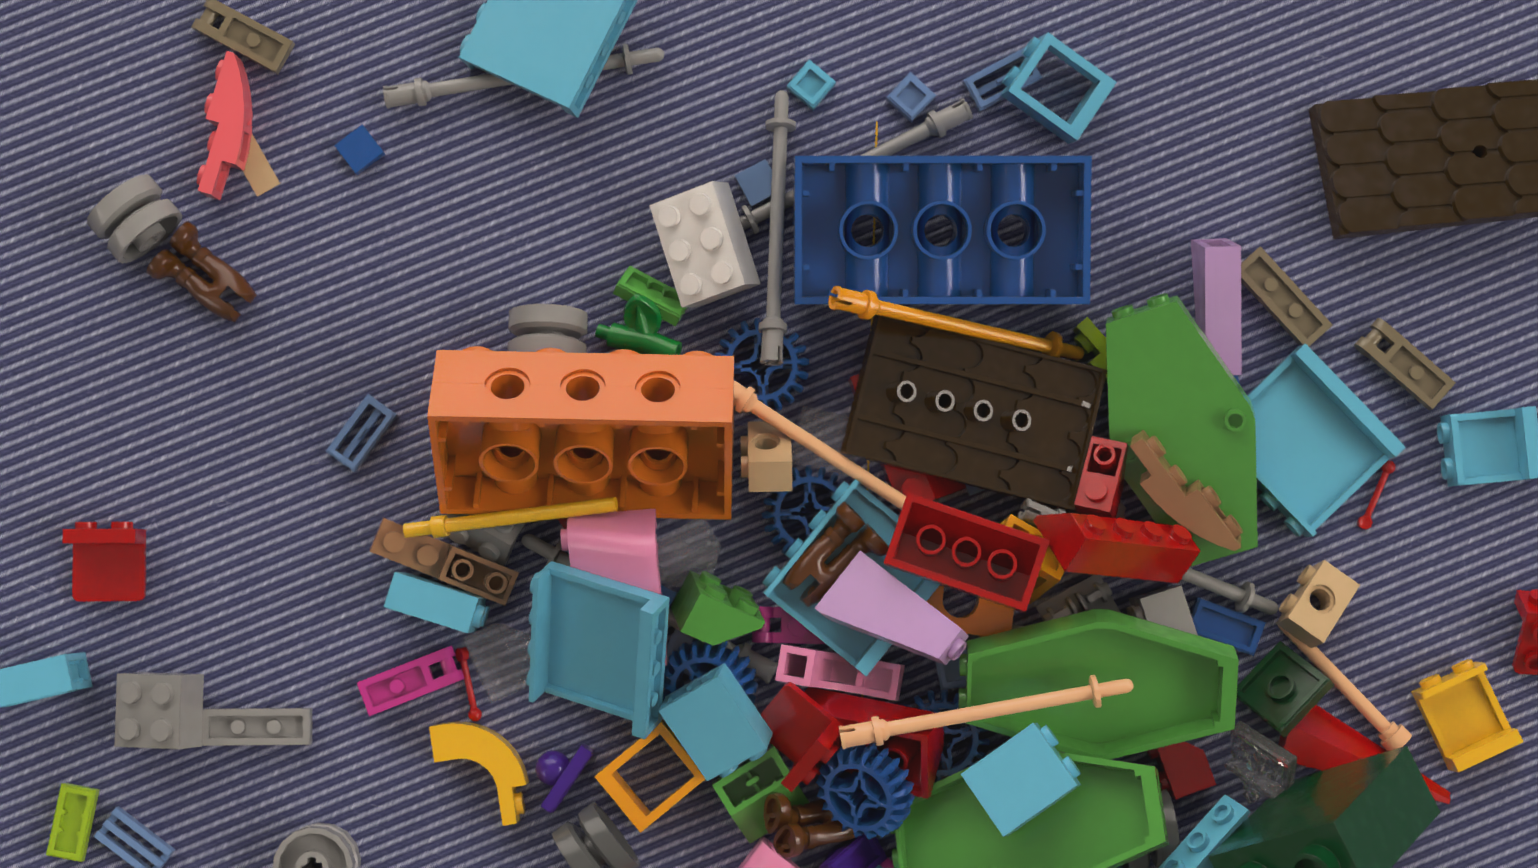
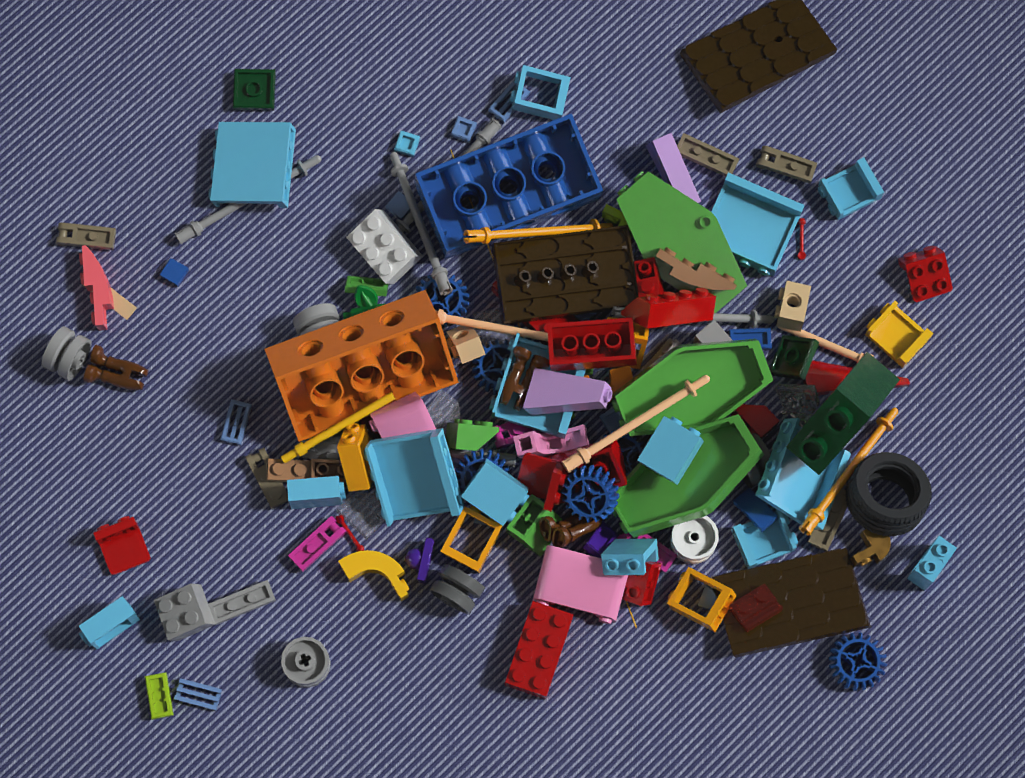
camera: 20 degrees left, 10 degrees down
(374, 570) = (273, 491): none -> dark tan plate
(511, 572) = (351, 454): none -> light orange window

